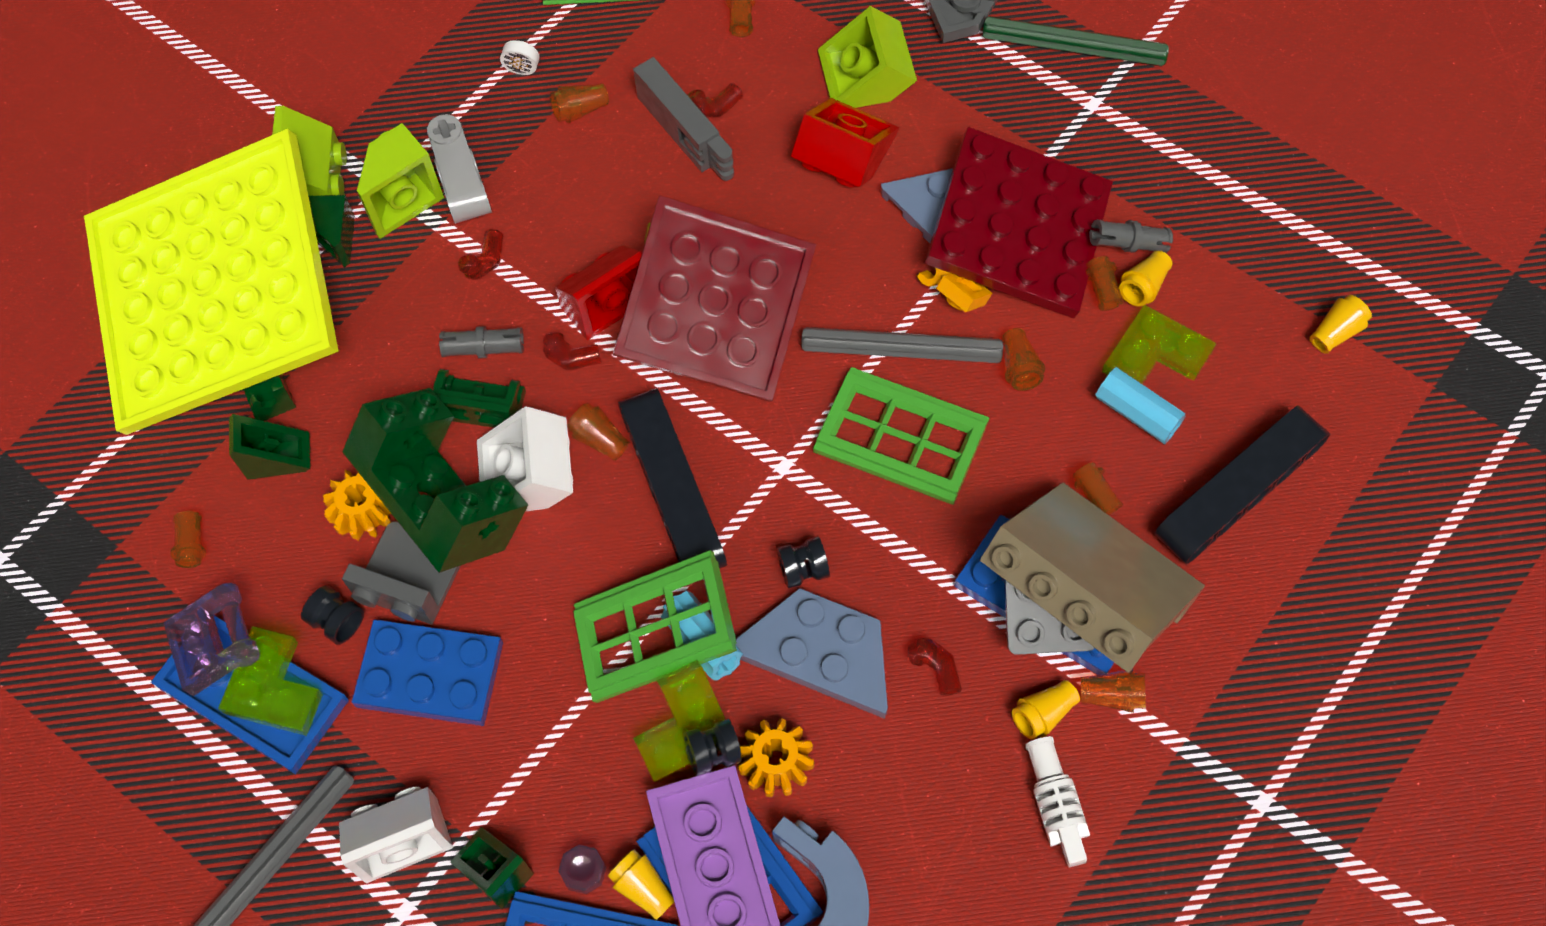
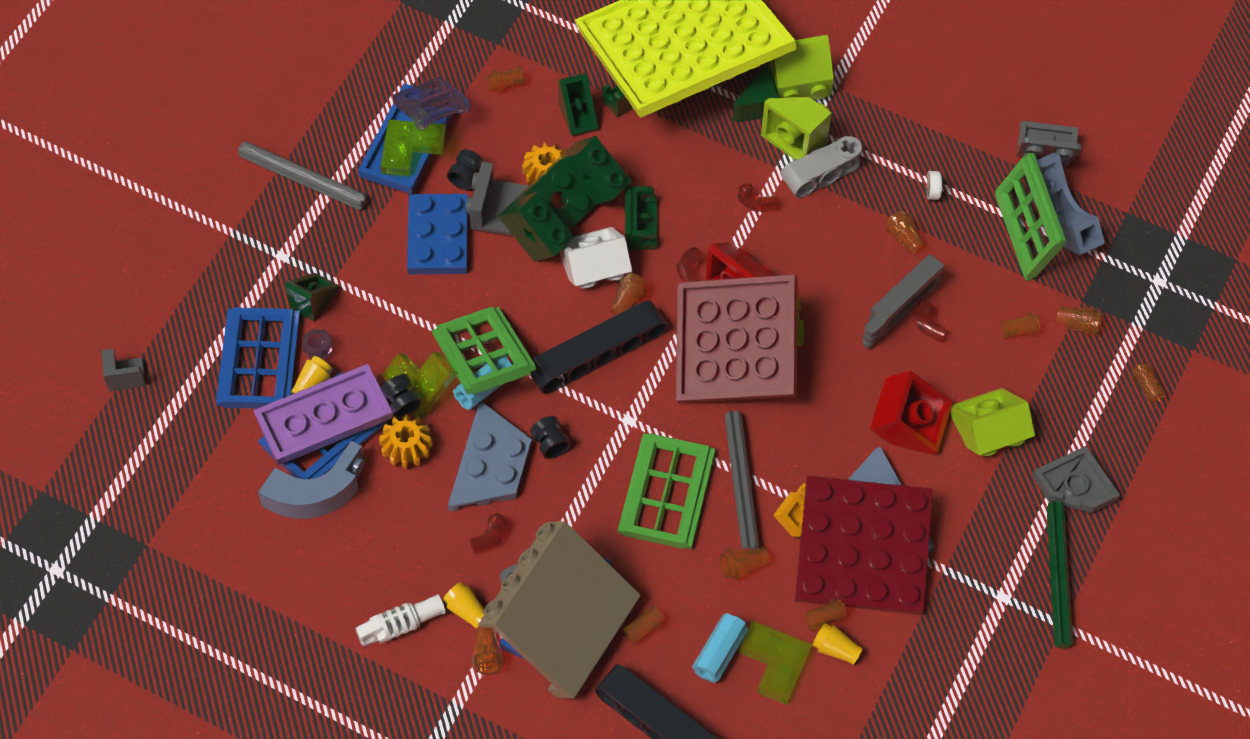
camera: 75 degrees right, 5 degrees down
(393, 835) = (323, 233): white slope -> none
(481, 342) = (686, 212): dark grey pin -> none
(1130, 236) = (869, 626): dark grey pin -> none

